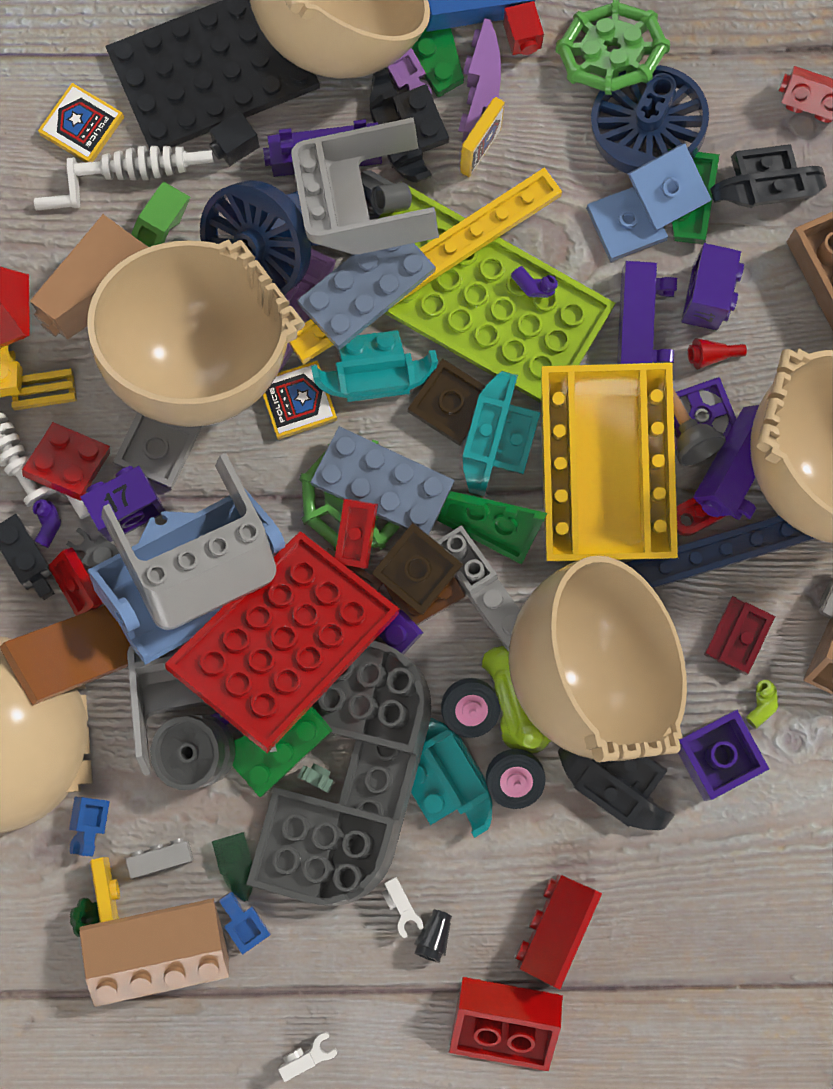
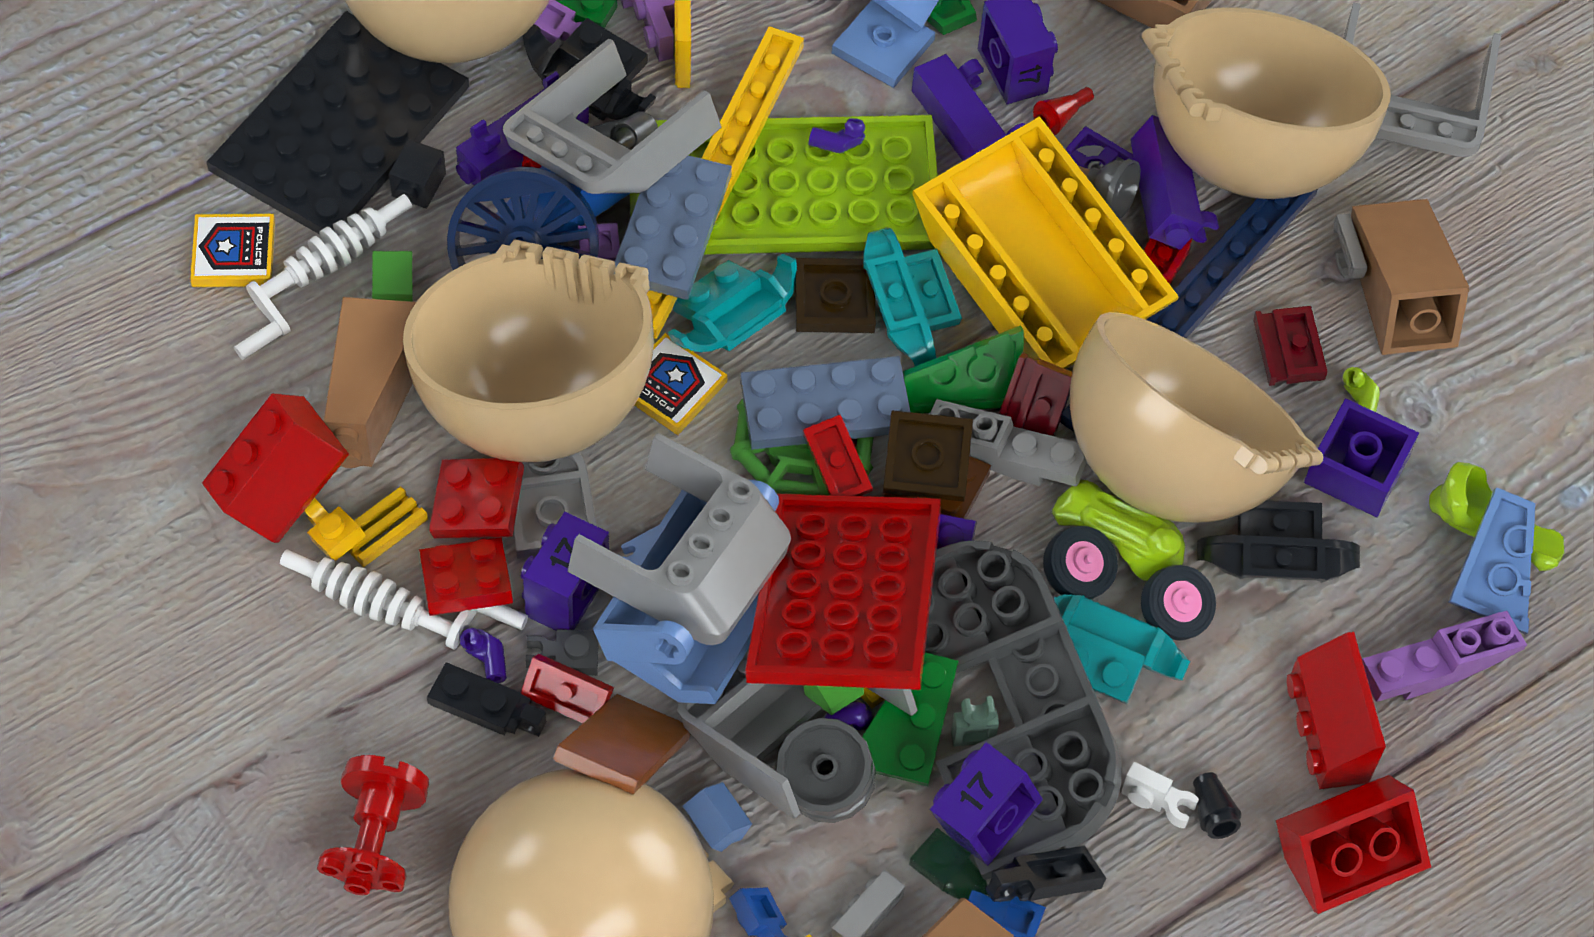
camera: 35 degrees left, 20 degrees down
(105, 414) = (476, 498): none -> red plate
(109, 733) = (718, 816): none -> medium blue piece
(267, 849) = (985, 803): none -> dark purple brick
(285, 915) = (1046, 875): none -> black hinge
(523, 569) = (1037, 395): none -> dark red plate
(665, 935) = (1444, 659): none -> medium lavender slope
(756, 895) = (1499, 561): none -> medium blue wing
(773, 841) = (1464, 501): none -> lime hair

